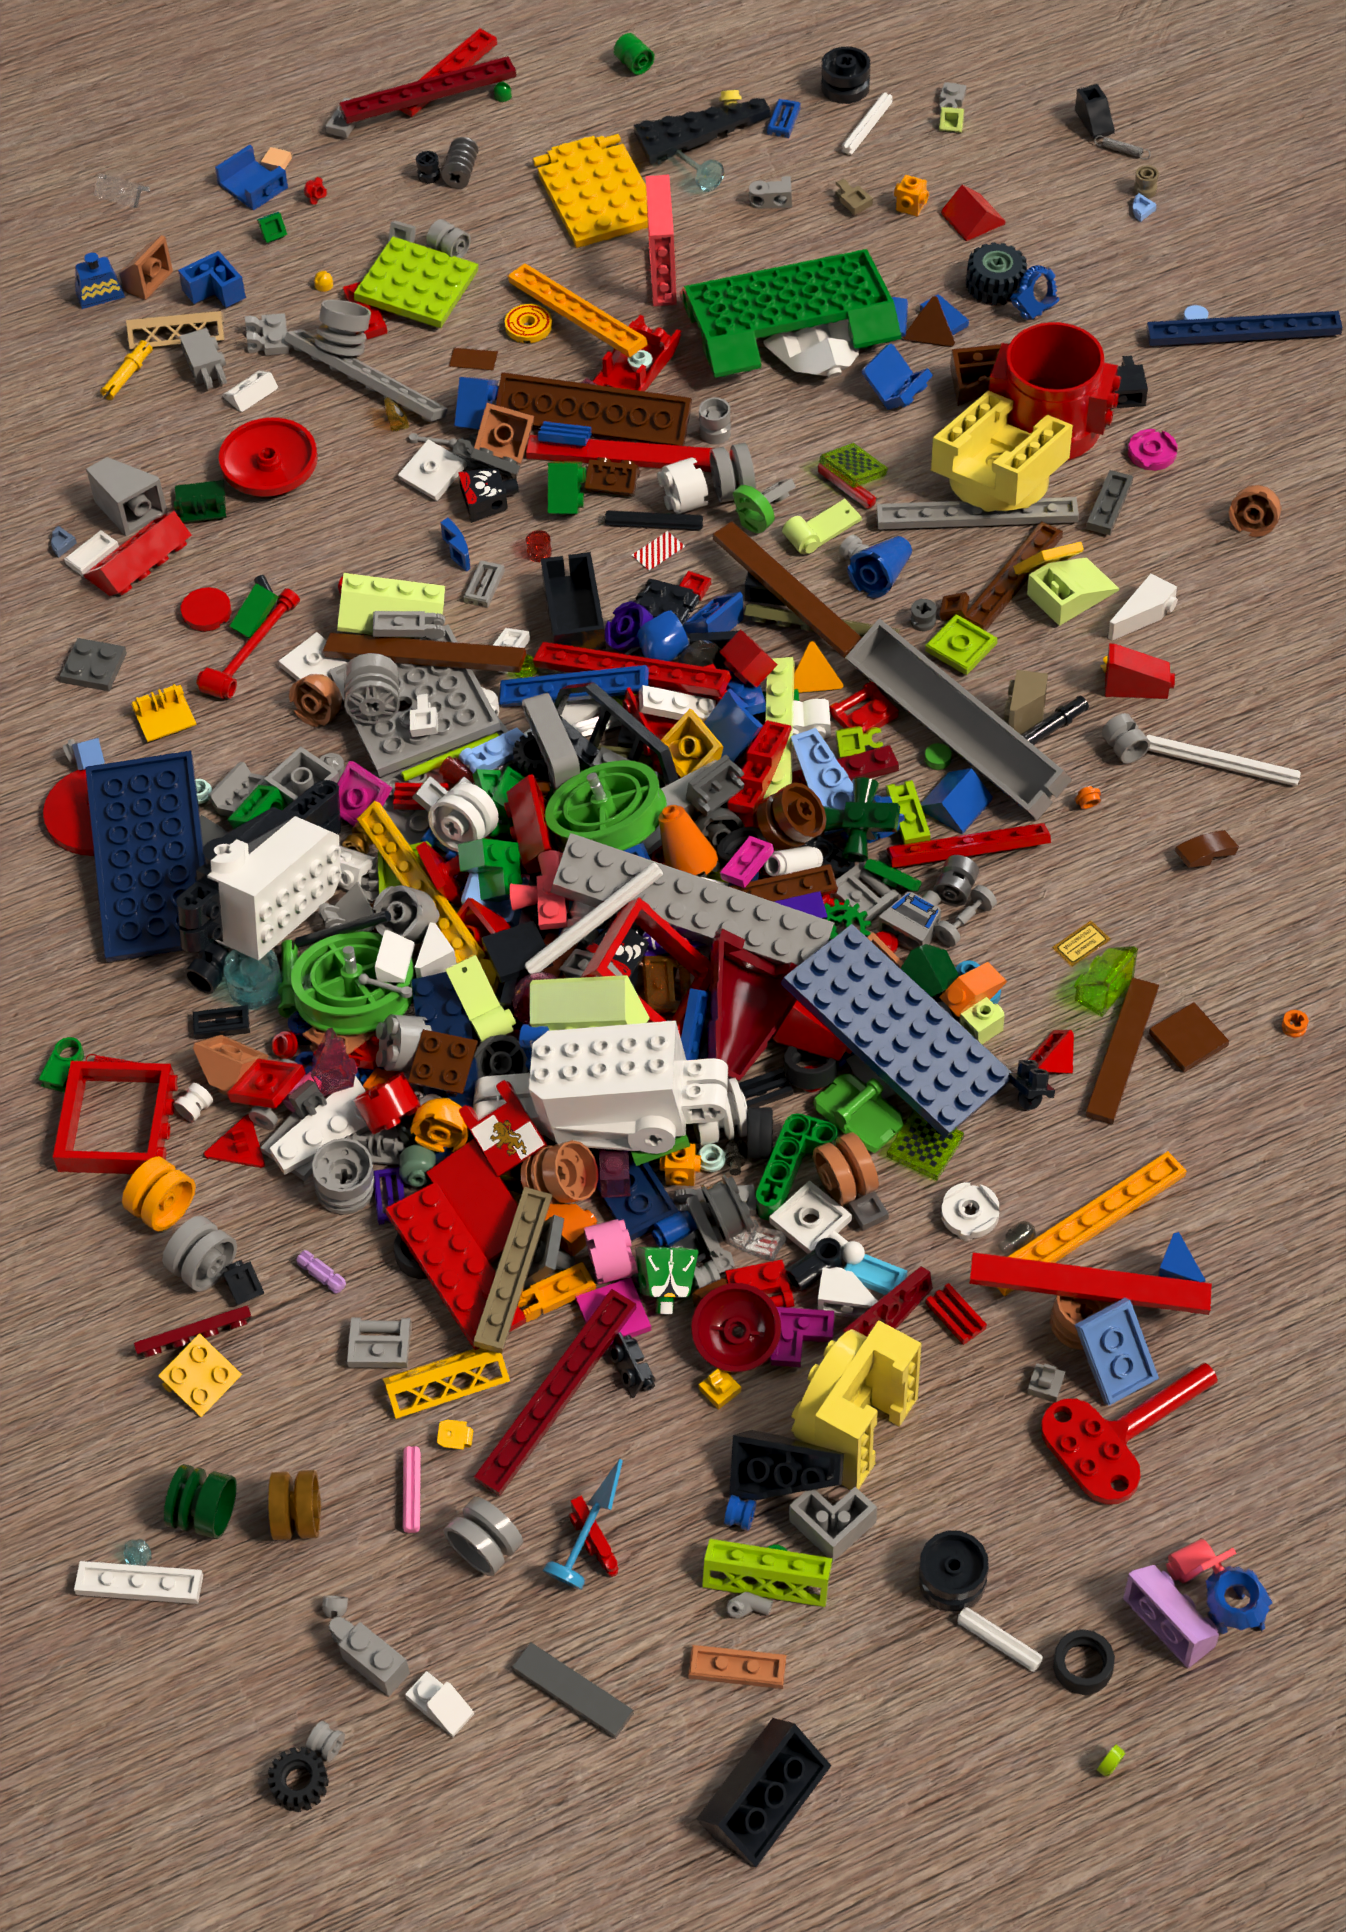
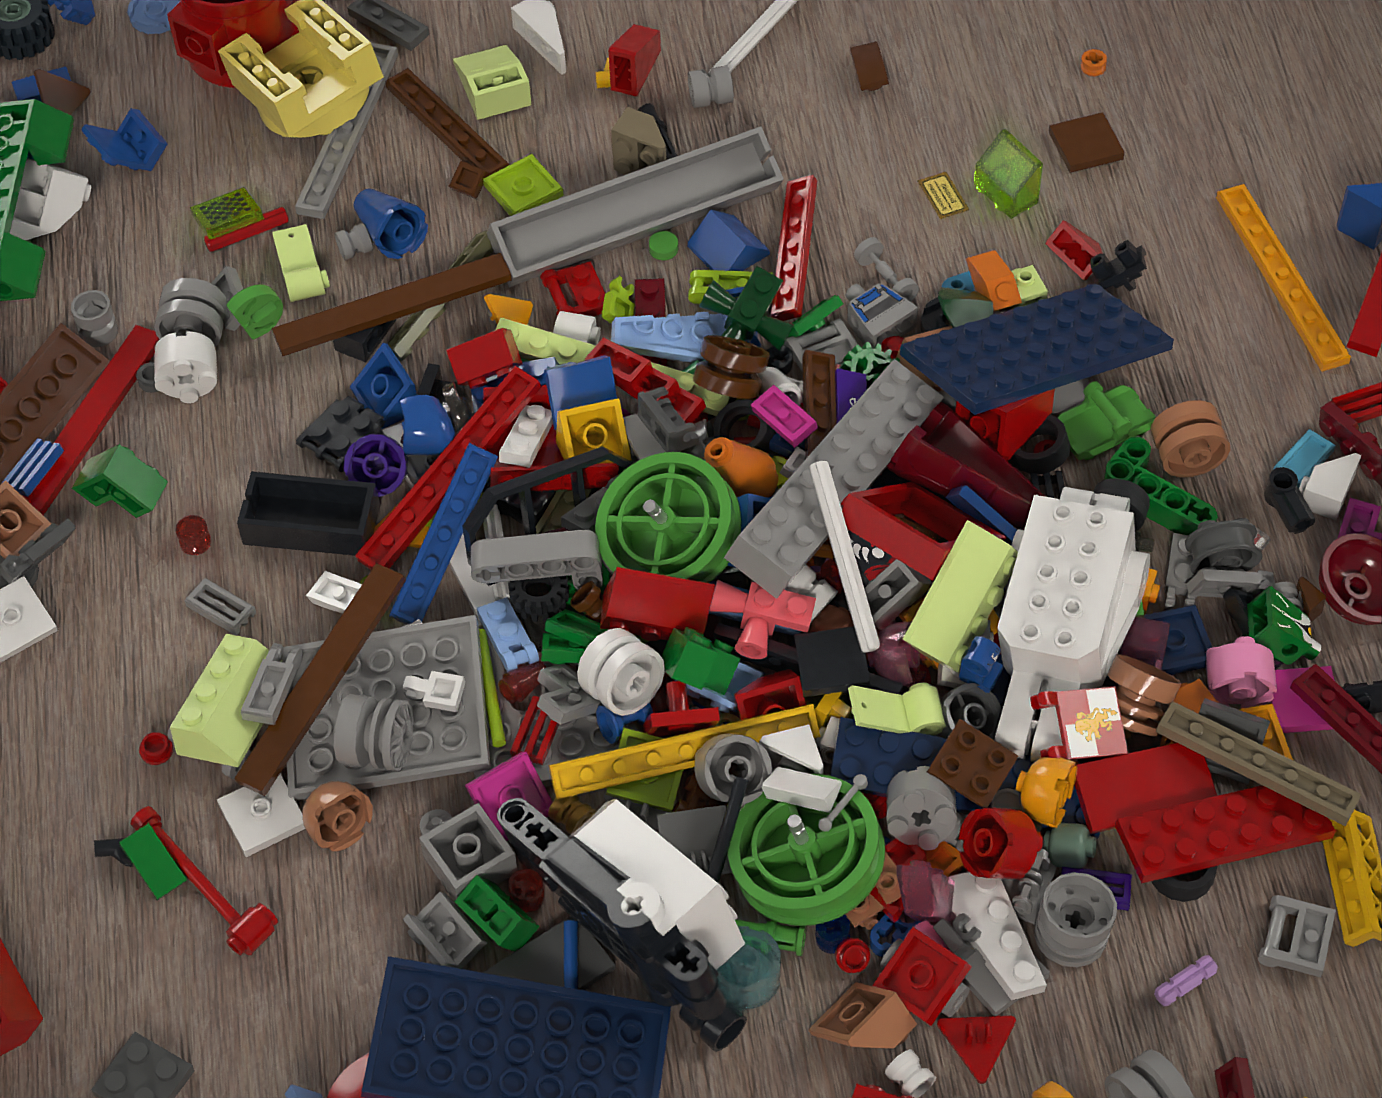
camera: 75 degrees left, 0 degrees up
(163, 713) = (269, 1005): yellow hinge -> none
(206, 609) = (112, 923): red tile -> none
(221, 1025) = (786, 1053): black tile -> none
(242, 1282) = (1192, 1063): black bracket -> none
(457, 543) = (160, 614): blue slope -> none
(485, 492) = (79, 571): black torso -> none
(612, 477) = (128, 428): reddish brown bracket -> none
(654, 520) = (207, 416): black axle -> none
(658, 550) = (252, 425): sticker -> none
(673, 1227) = (1216, 615): blue brick -> none
(697, 582) = (322, 398): red tile -> none
(767, 1277) = (1290, 554): red plate -> none
(830, 1222) = (1236, 476): white plate -> none
(868, 1211) = (1238, 441): flat silver plate -> none
(923, 615) = (468, 207): dark grey wheel -> none
(924, 1147) = (1159, 380): clear neon green tile -> none
(956, 880) = (840, 265): flat silver wheel -> none
(967, 1225) = (1249, 374): white plate -> none
(972, 371) = (152, 67): reddish brown wedge -> none
(1018, 1236) = (1289, 330): clear smoke cylinder -> none
(1047, 556) = (455, 78): yellow tile -> none
(1088, 797) = (773, 135): orange plate -> none
(1122, 1051) = (1102, 202): reddish brown tile -> none

